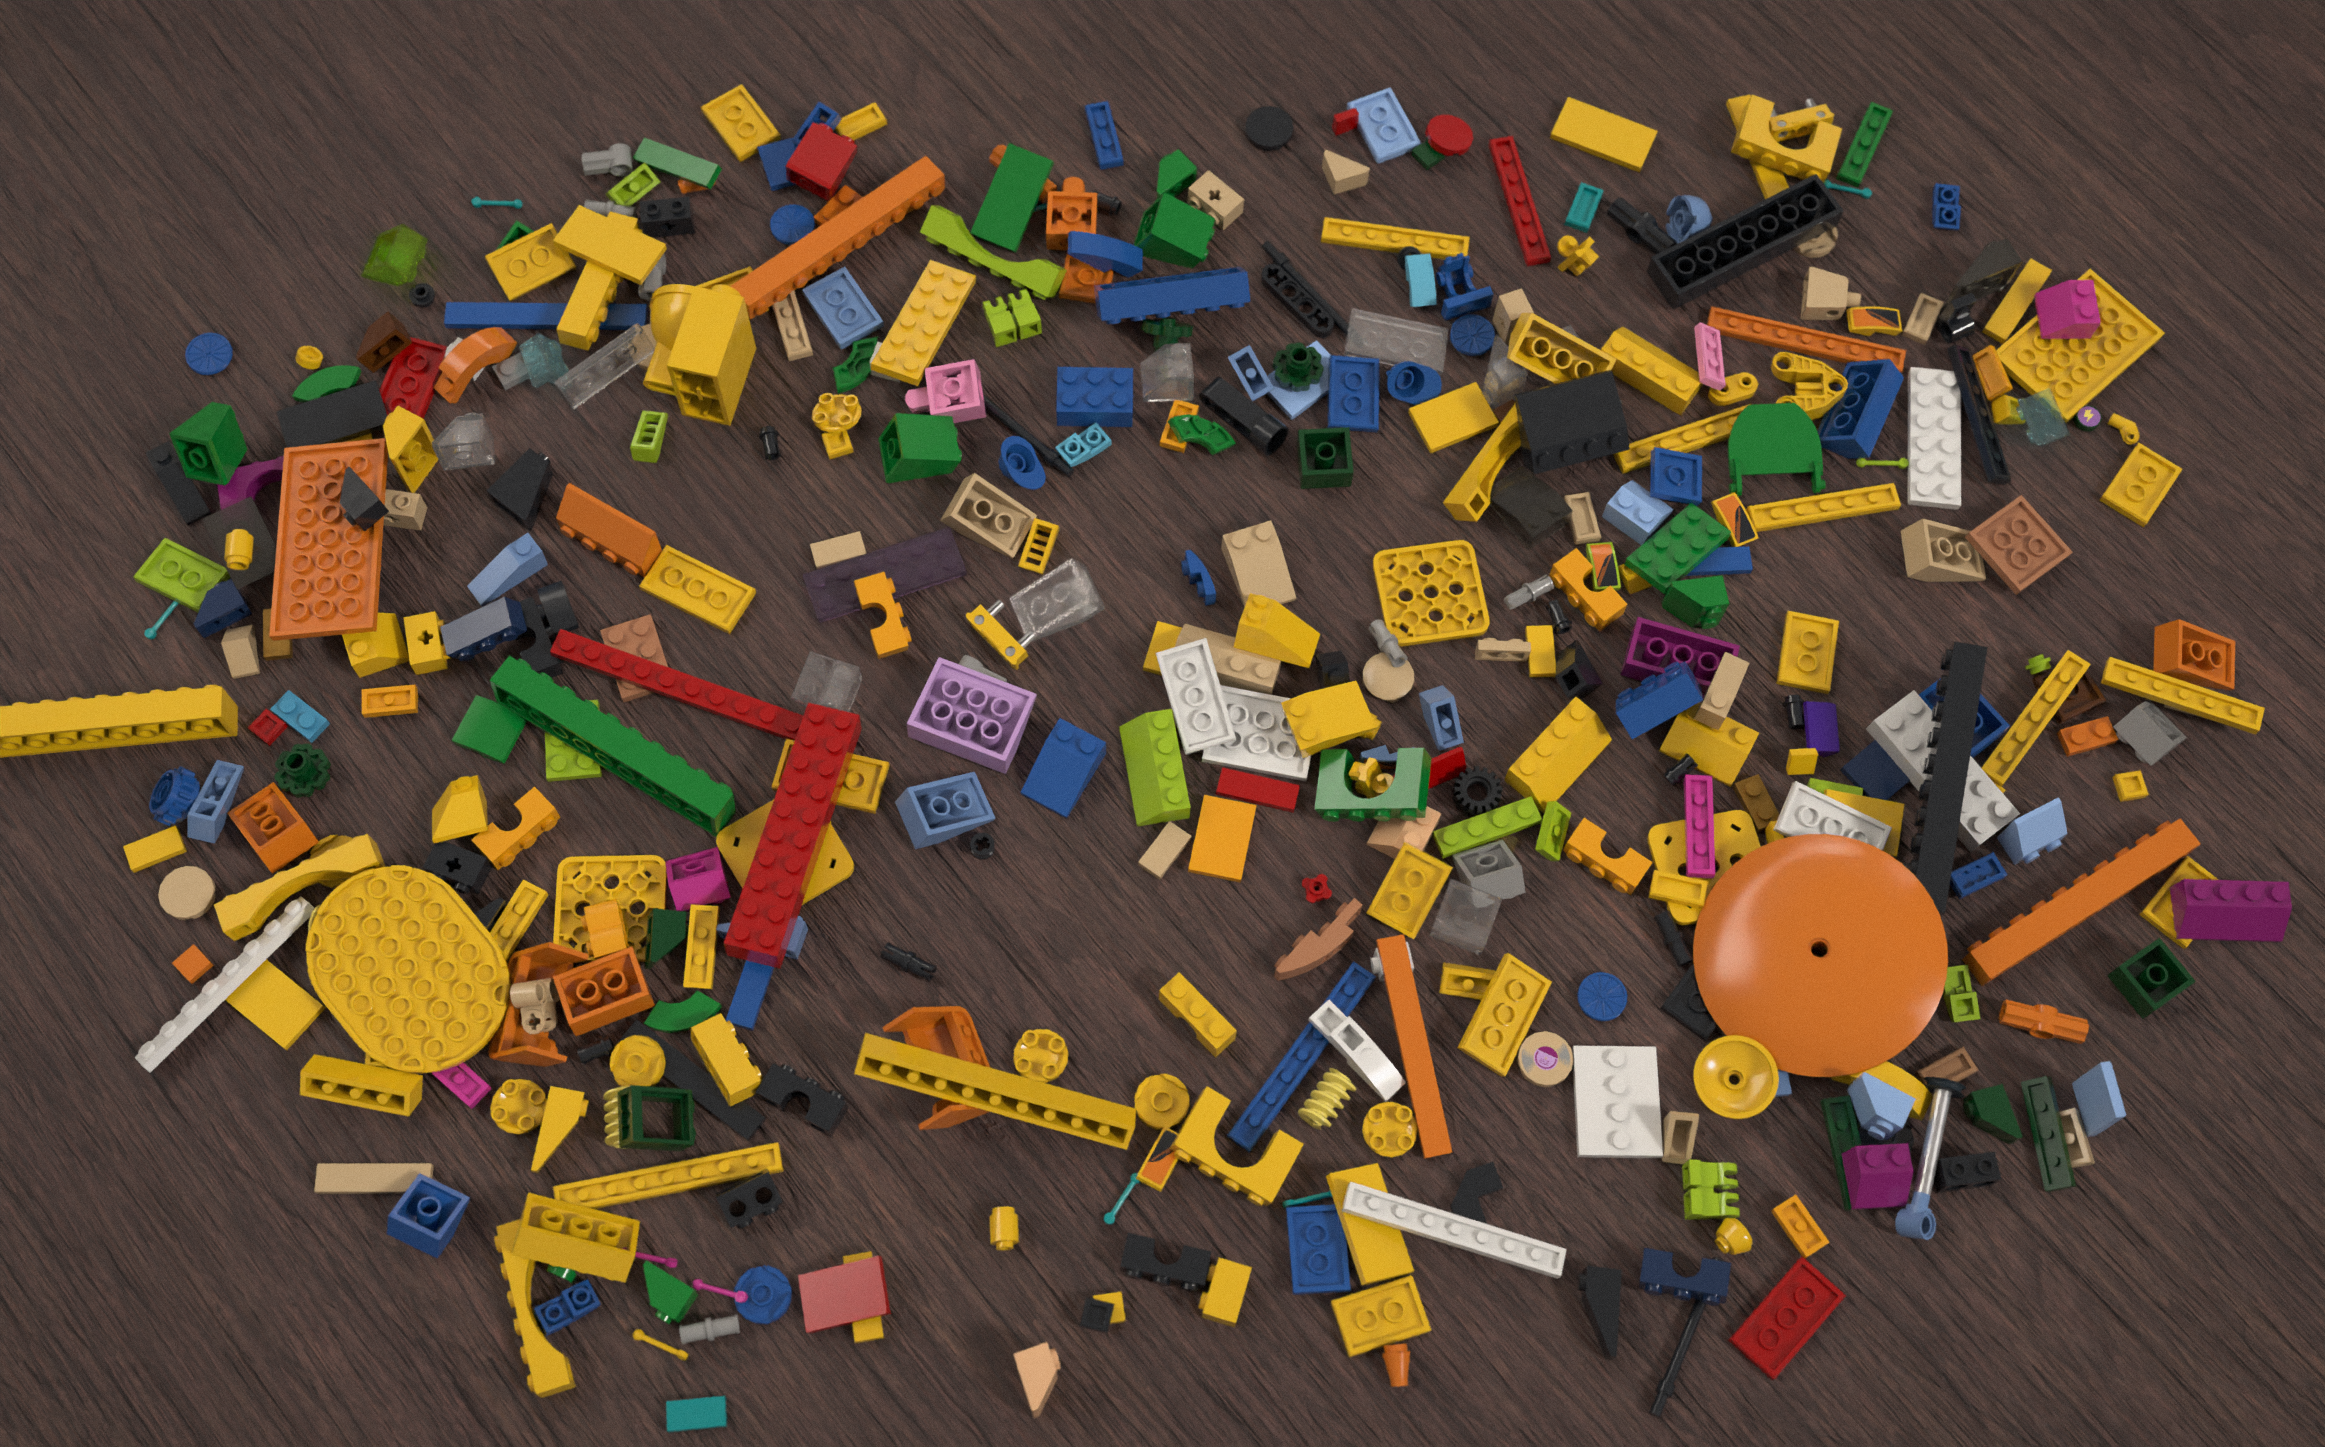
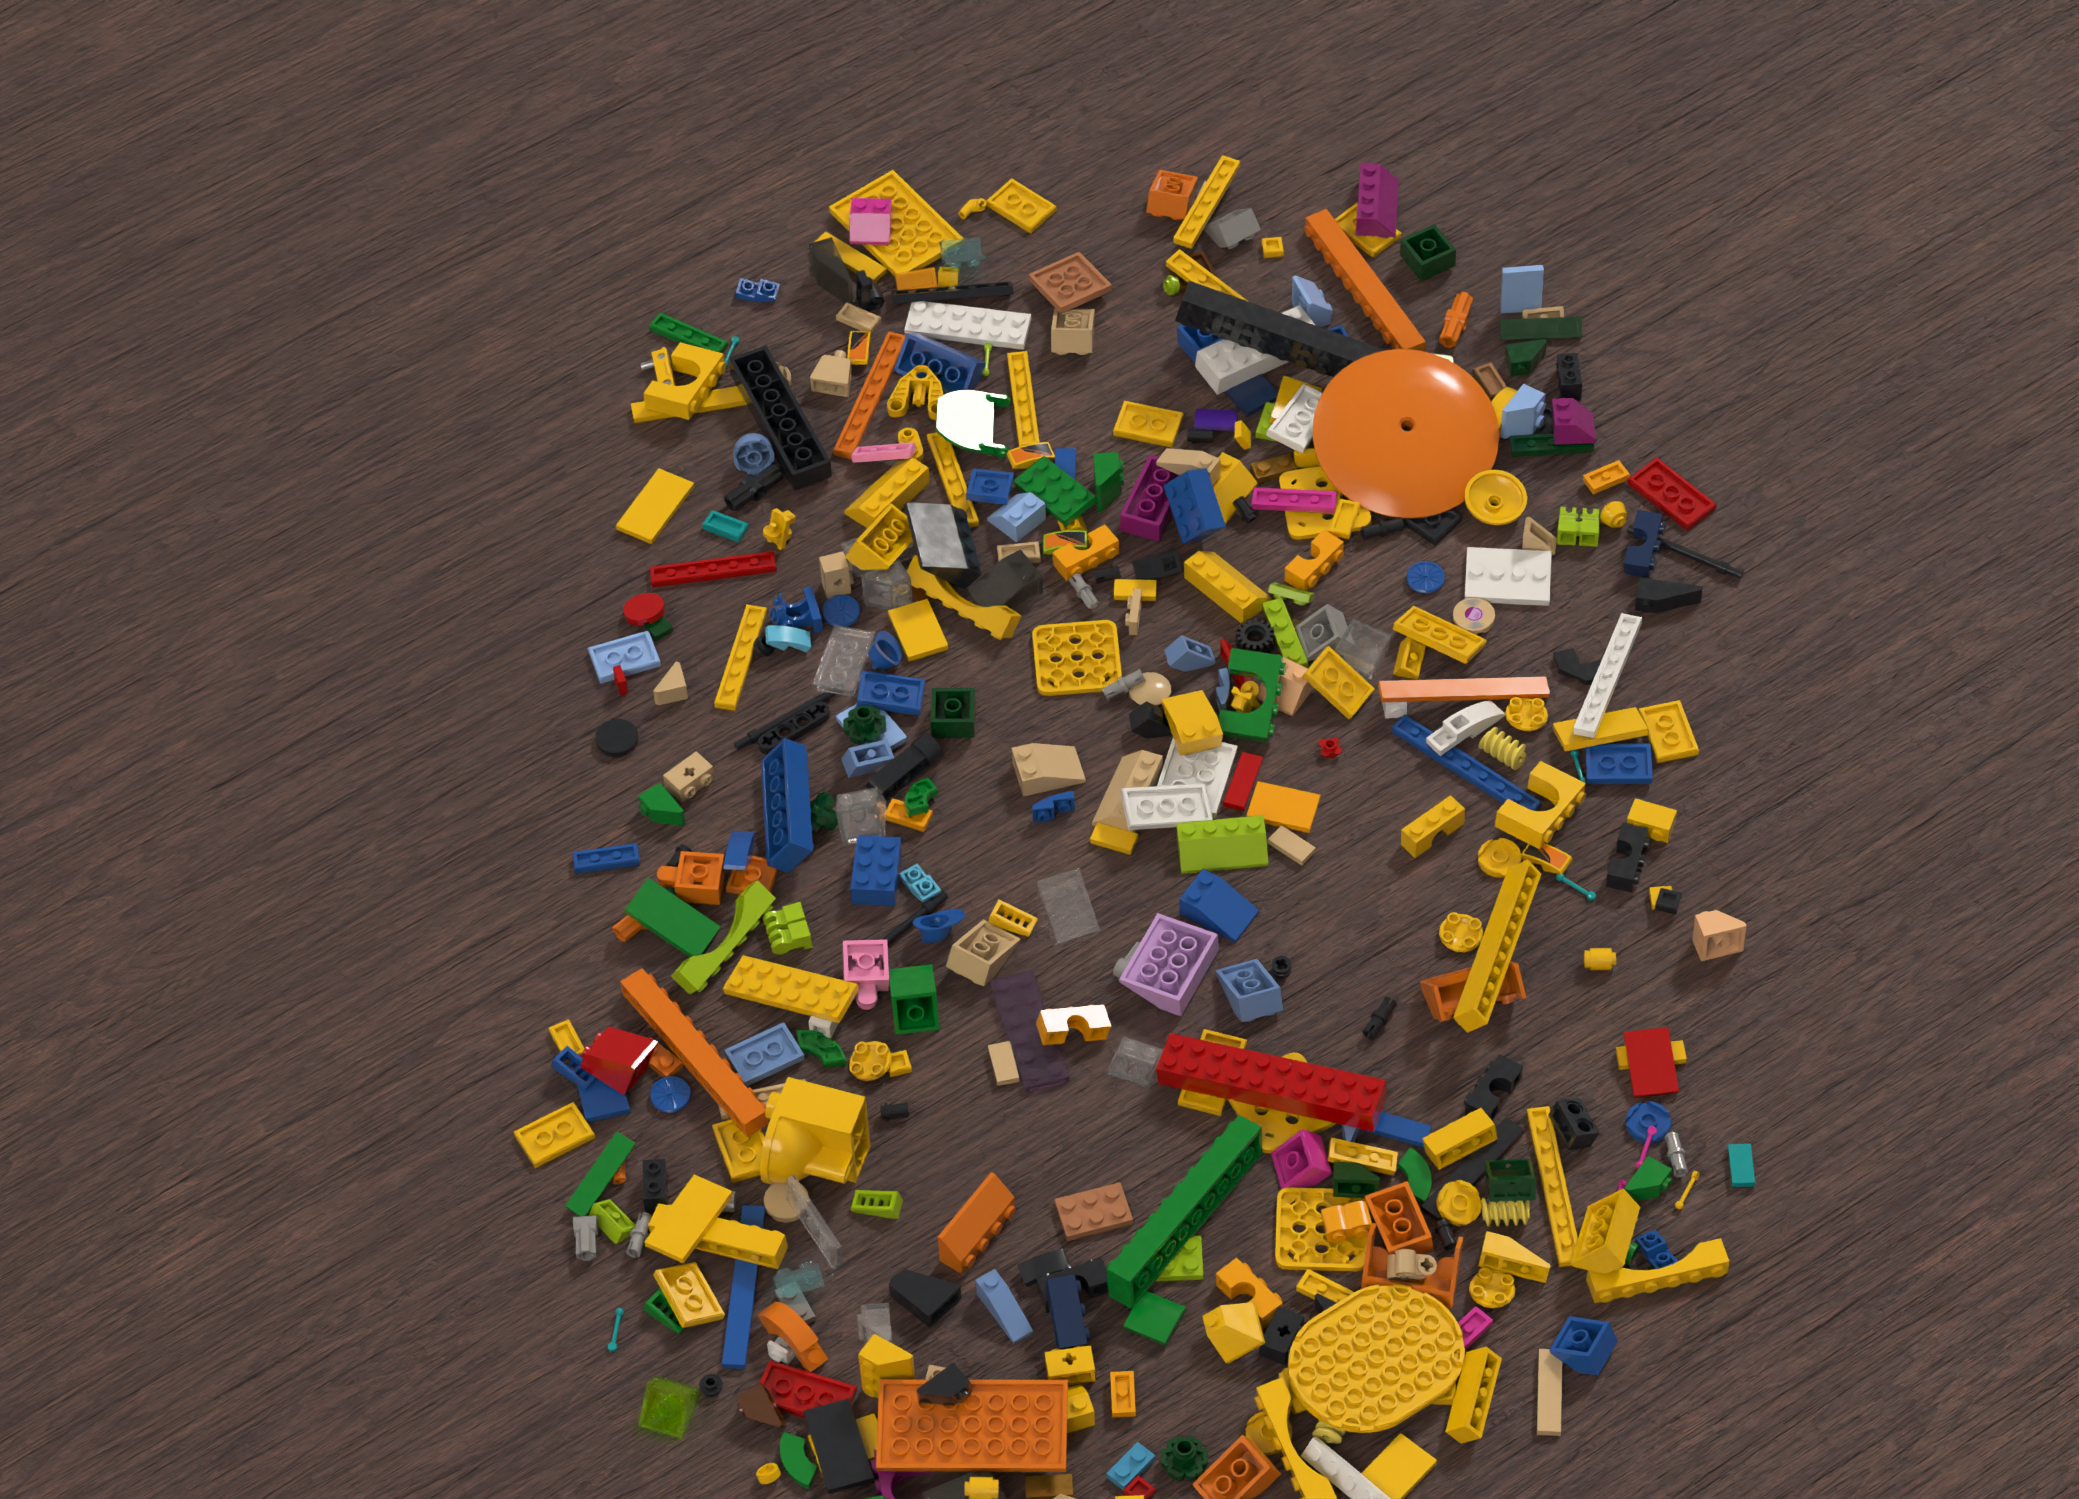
camera: 80 degrees left, 15 degrees down
(676, 685) = (1126, 1173): red plate -> none
(697, 589) = (1034, 1165): yellow tile -> none
(1003, 643) = (1096, 948): yellow piece -> none
(1174, 232) = (719, 808): green slope -> none
(1275, 632) = (1109, 757): yellow slope -> none
(1314, 950) = (1381, 747): nougat slope -> none
(1397, 1363) = (1704, 721): orange cone -> none
(1917, 1219) = (1602, 407): piece -> none
(2087, 418) = (962, 227): tile -> none
(2087, 736) = (1230, 266): orange plate -> none

